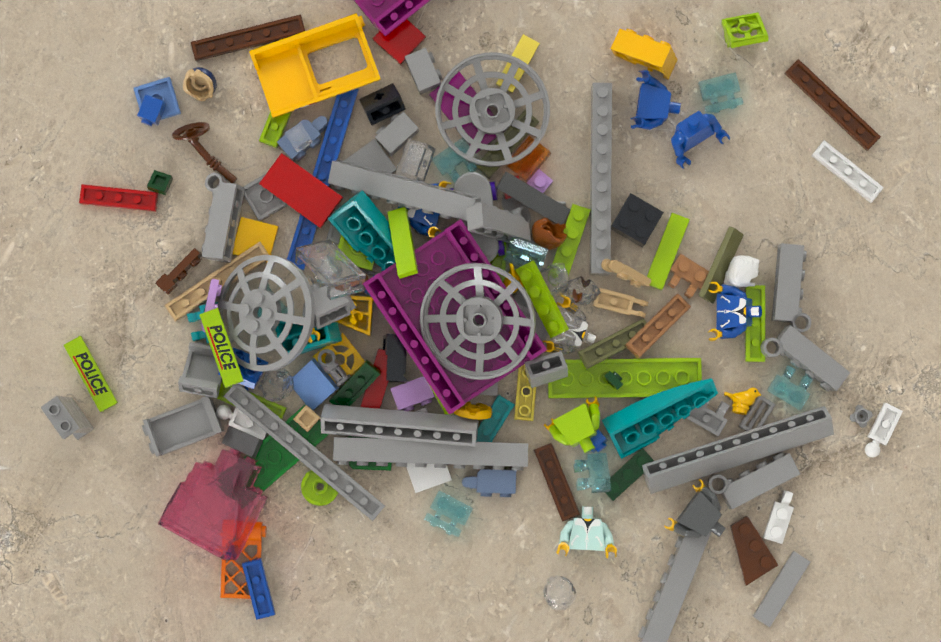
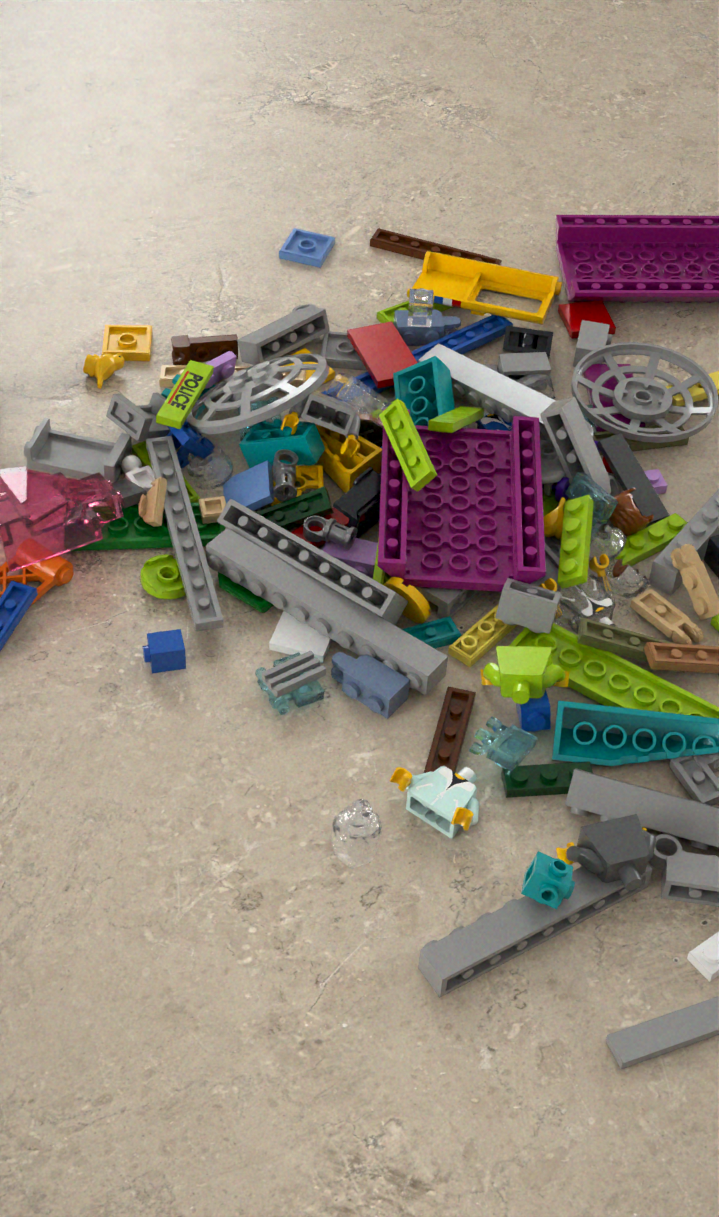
camera: 40 degrees right, 40 degrees down
(90, 374) = (34, 374): lime tile -> none
(118, 198) = (201, 284): red tile -> none
(121, 297) = (129, 340): none -> yellow tile
(130, 337) = (102, 366): none -> yellow animal
(151, 110) = (296, 239): blue brick -> none
(159, 182) = (251, 289): dark green plate -> none
(192, 134) = (317, 274): reddish brown dish -> none
(200, 83) = (359, 246): tan hair -> none
(272, 447) = (152, 504): none -> tan tile
(364, 544) = (165, 651): none -> blue brick
(393, 396) = (330, 531): none -> flat silver connector
(404, 313) = (407, 445): none -> lime plate
(444, 527) = (290, 671): none -> light grey tile
(469, 328) = (485, 490): light grey dish -> none
(532, 162) = (657, 456): clear orange plate -> none
(613, 379) = (604, 664): dark green plate -> none
(681, 565) = (548, 880): none -> teal brick
(752, 551) = (660, 961): reddish brown wing -> none

